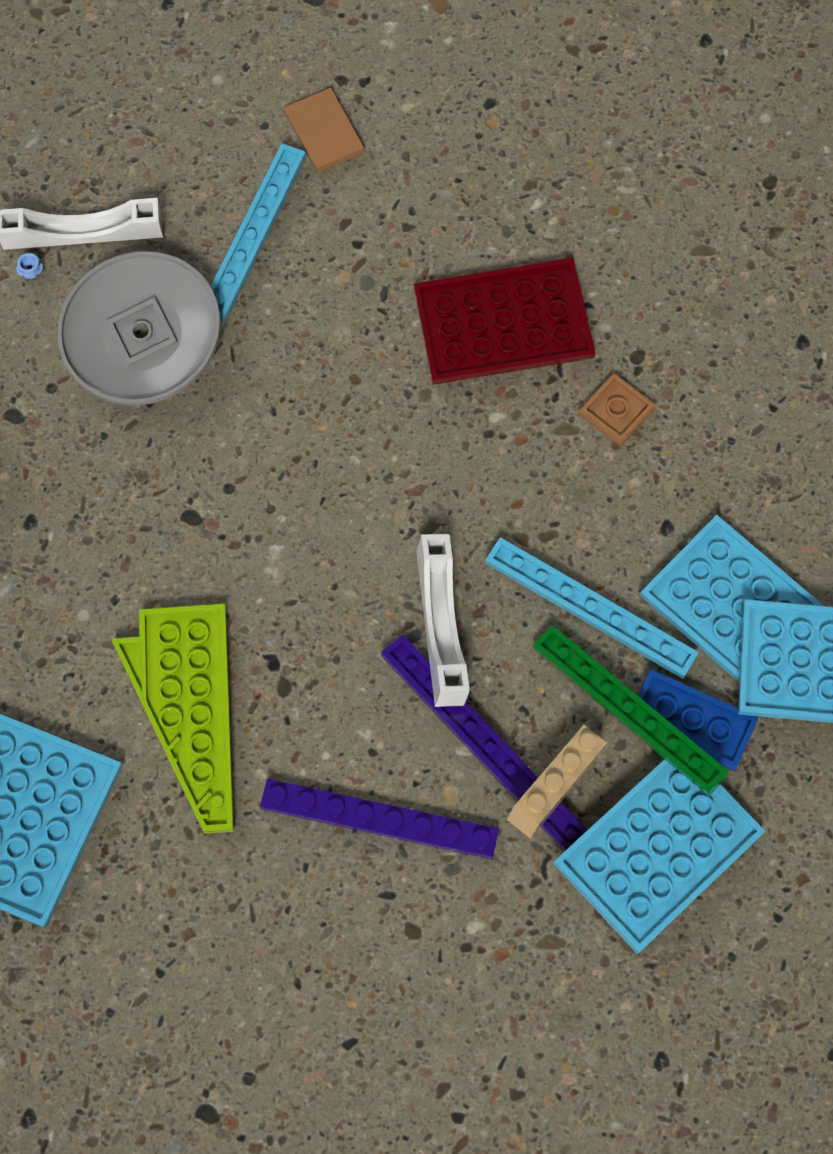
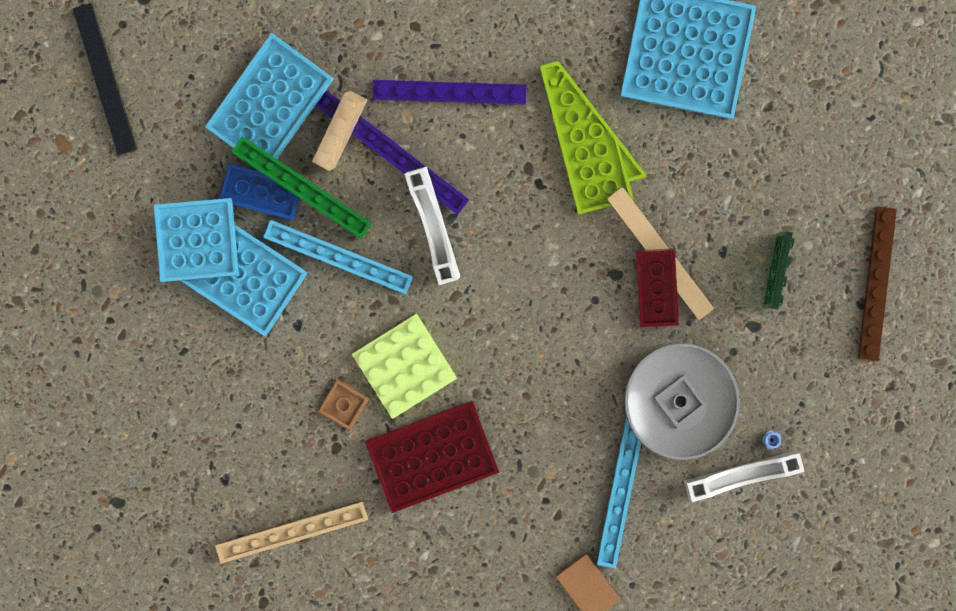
camera: 165 degrees right, 20 degrees up
(120, 532) = (651, 240): none -> tan tile
(135, 482) = (657, 287): none -> dark red plate
(520, 446) = (404, 366): none -> yellowish green plate
(717, 258) = (291, 532): none -> tan plate

